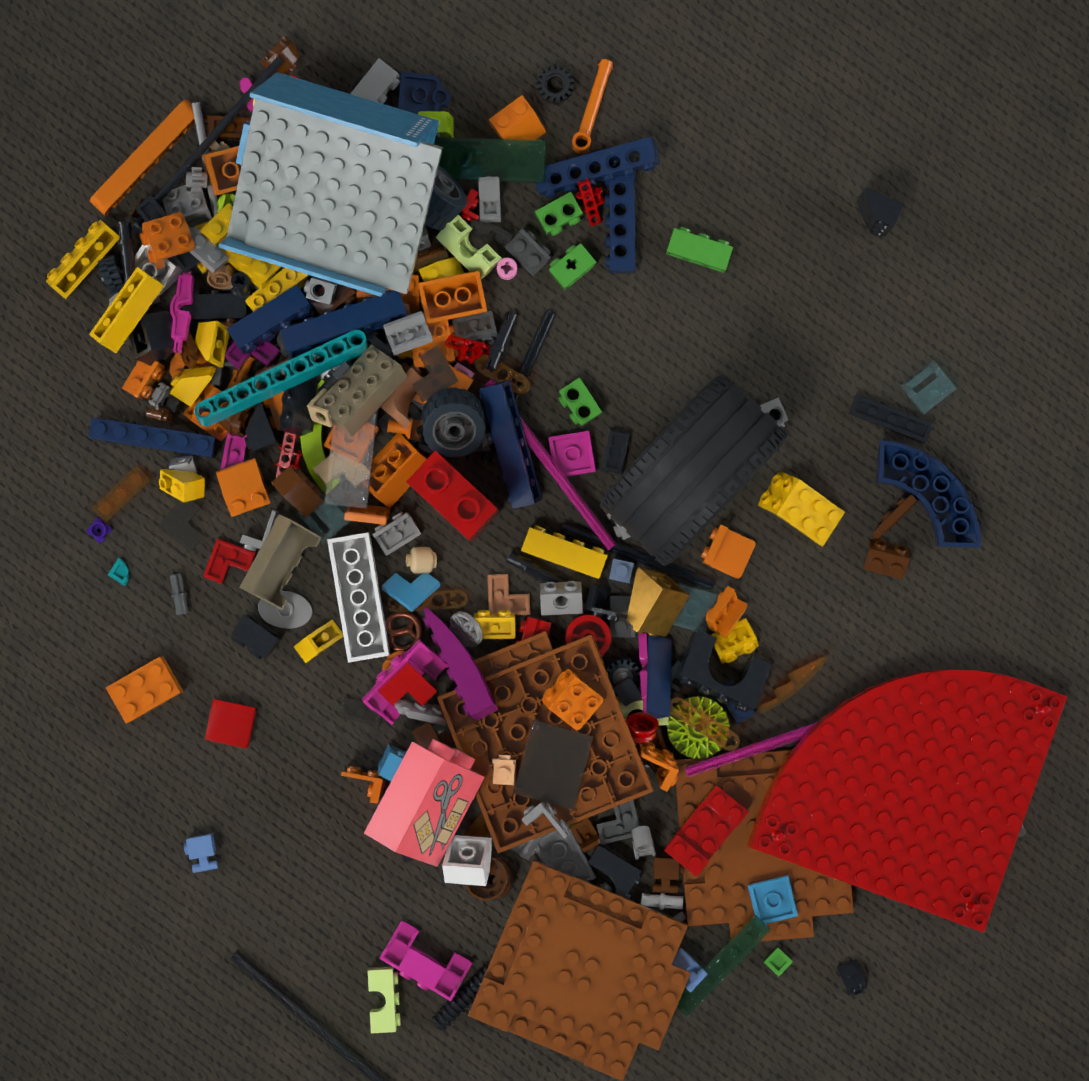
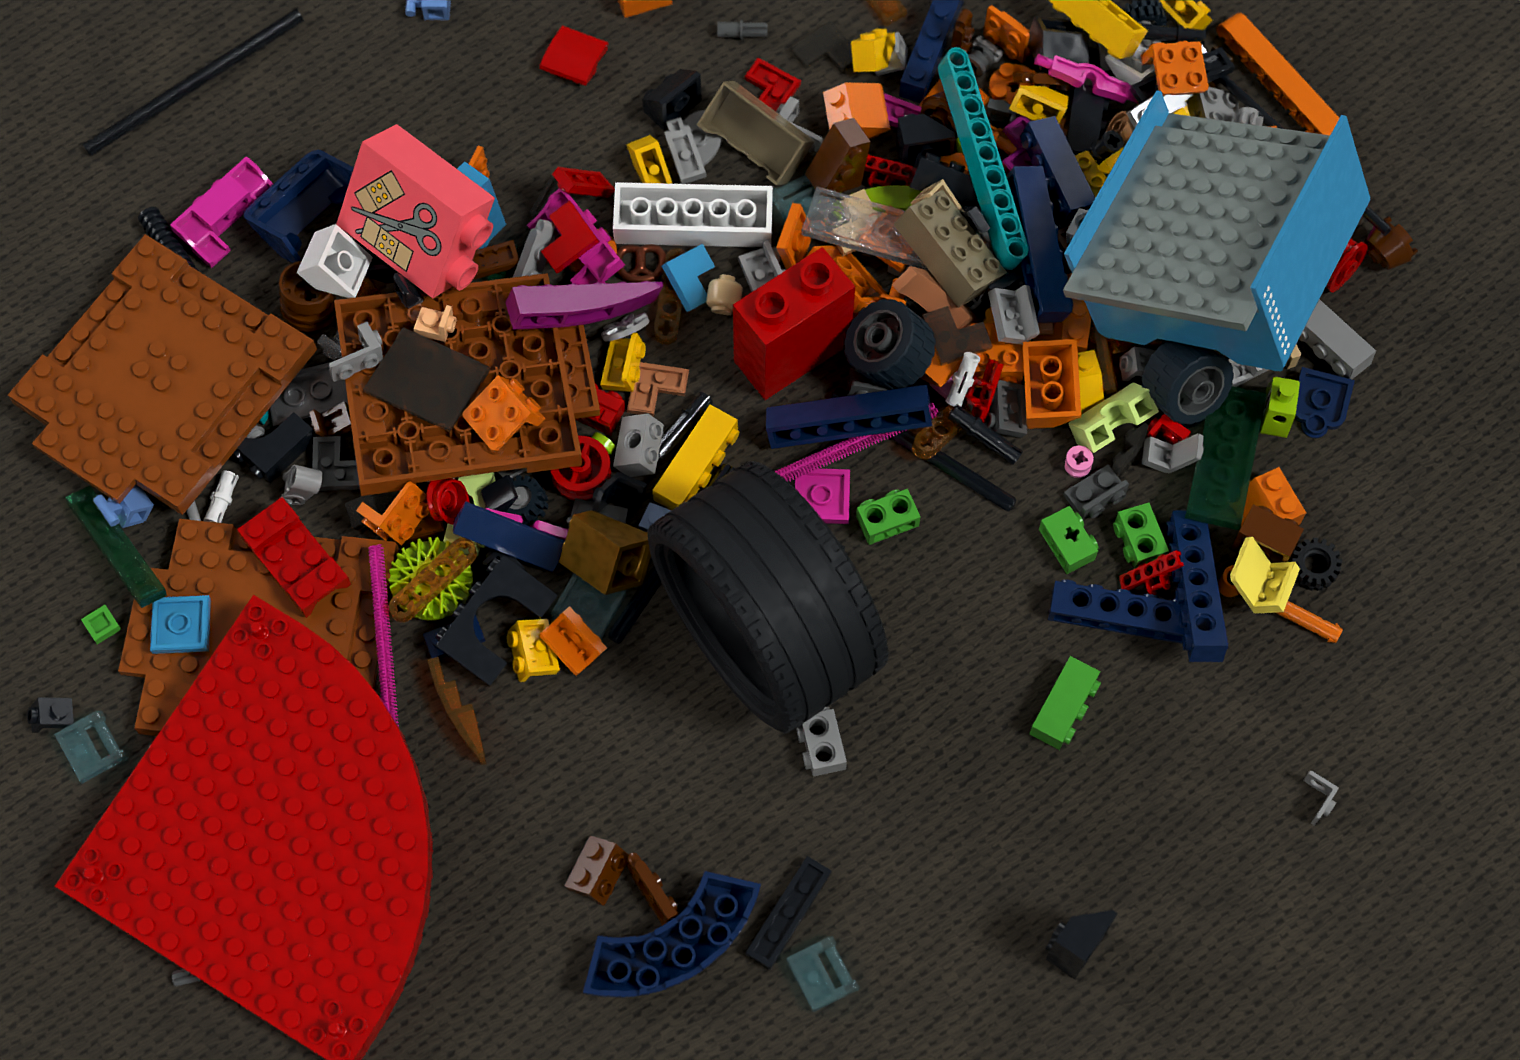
camera: 100 degrees right, 20 degrees down
(191, 383) = (994, 75): yellow slope -> none
(302, 616) = (684, 151): none -> light grey hinge
(351, 687) = (583, 182): none -> red plate
(384, 980) = (173, 159): yellowish green arch -> none
(406, 910) = (298, 200): none -> dark blue windscreen
(465, 363) = (968, 364): none -> white pin
(481, 798) = (406, 291): none -> black slope
(547, 120) = (1272, 533): none -> reddish brown slope
(562, 628) = (607, 443): none -> lime tile
(584, 119) = (1260, 582): none -> light yellow bracket
(666, 869) = (255, 503): reddish brown brick -> none
(728, 551) = (654, 662): orange bracket -> none
(737, 55) = (1329, 790): none -> light grey bracket
(801, 507) = (688, 767): yellow bracket -> none
(875, 946) = (82, 751): none -> clear light blue plate

